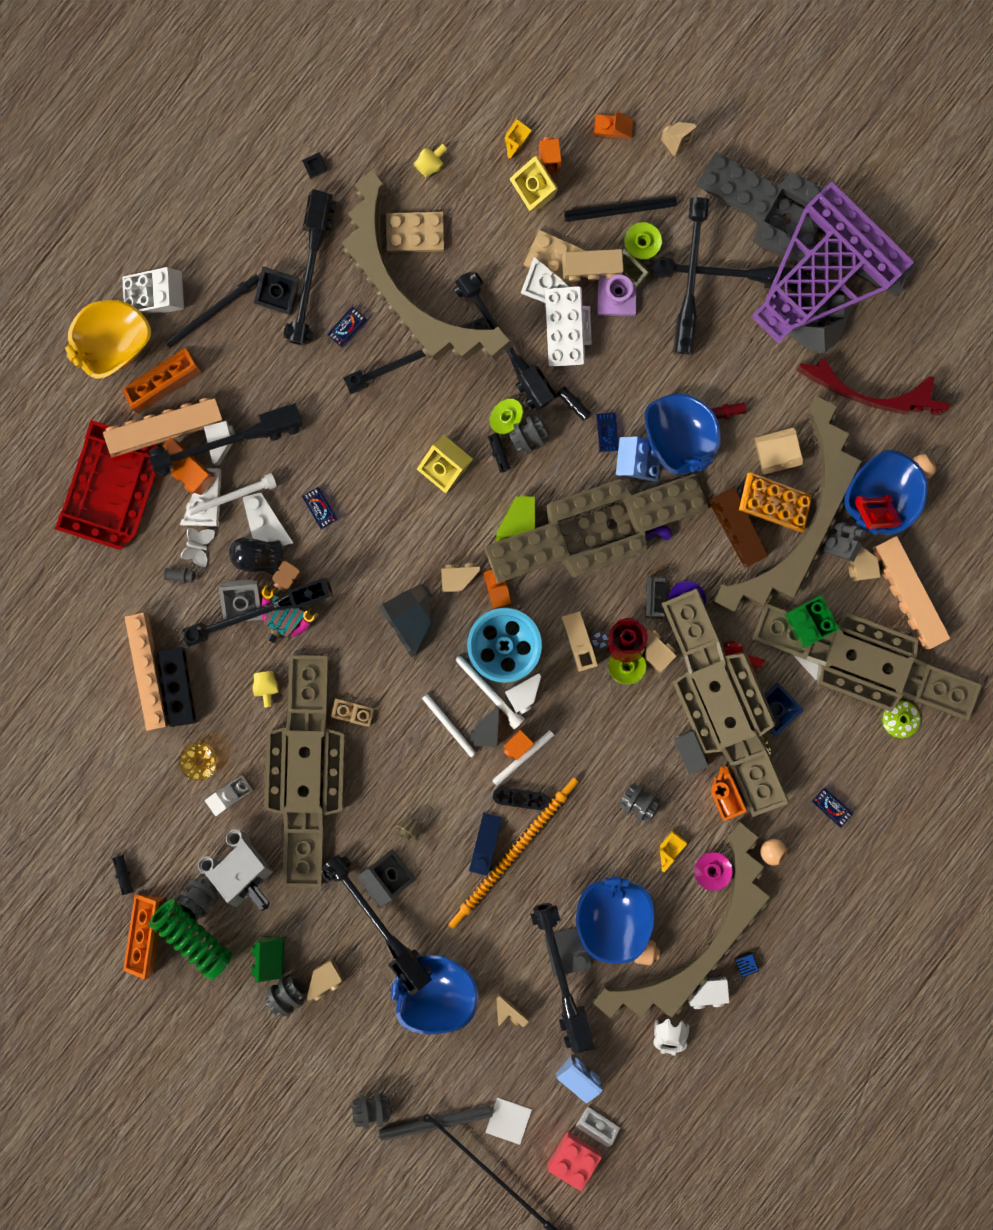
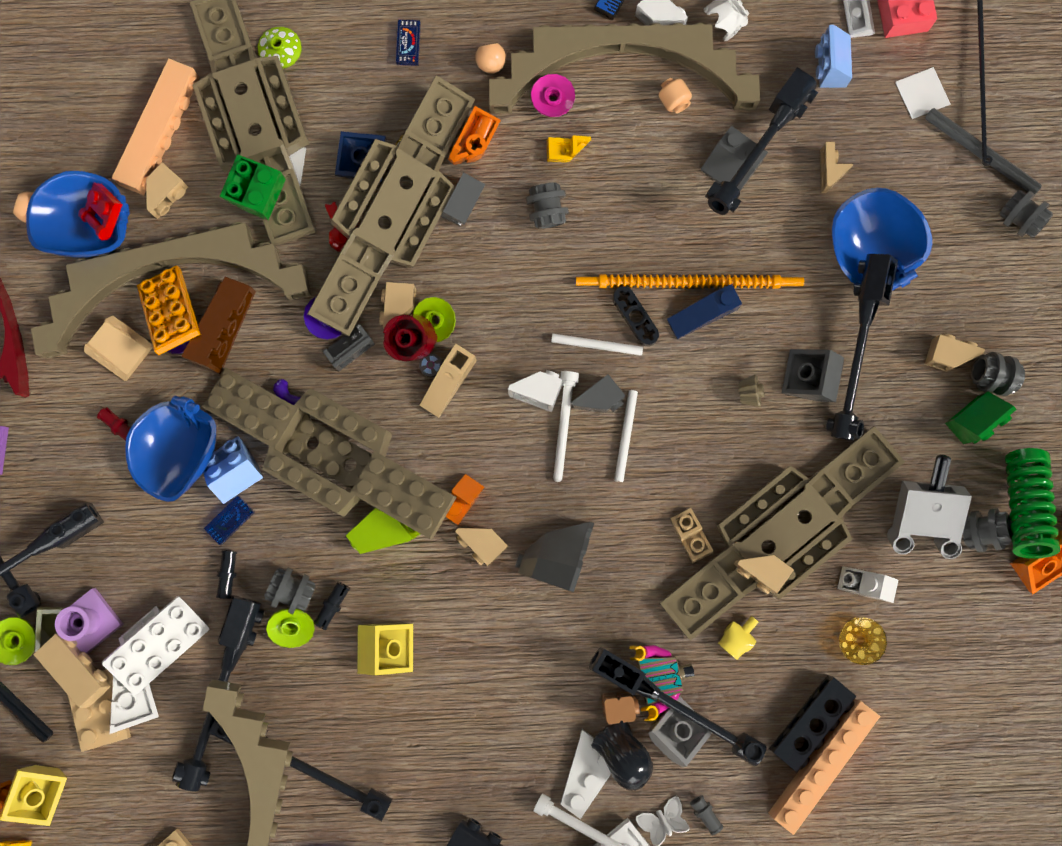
camera: 125 degrees left, 5 degrees down
(122, 875) = (1027, 620): black pin -> none
(291, 737) = (766, 570): none -> tan slope
(319, 508) = (527, 733): clear blue tile -> none
(517, 745) = (590, 356): orange brick -> none
(527, 632) = (511, 412): medium azure wheel -> none
(615, 920) = (670, 139): blue piece -> none
(844, 547) = (160, 215): dark grey plate -> none

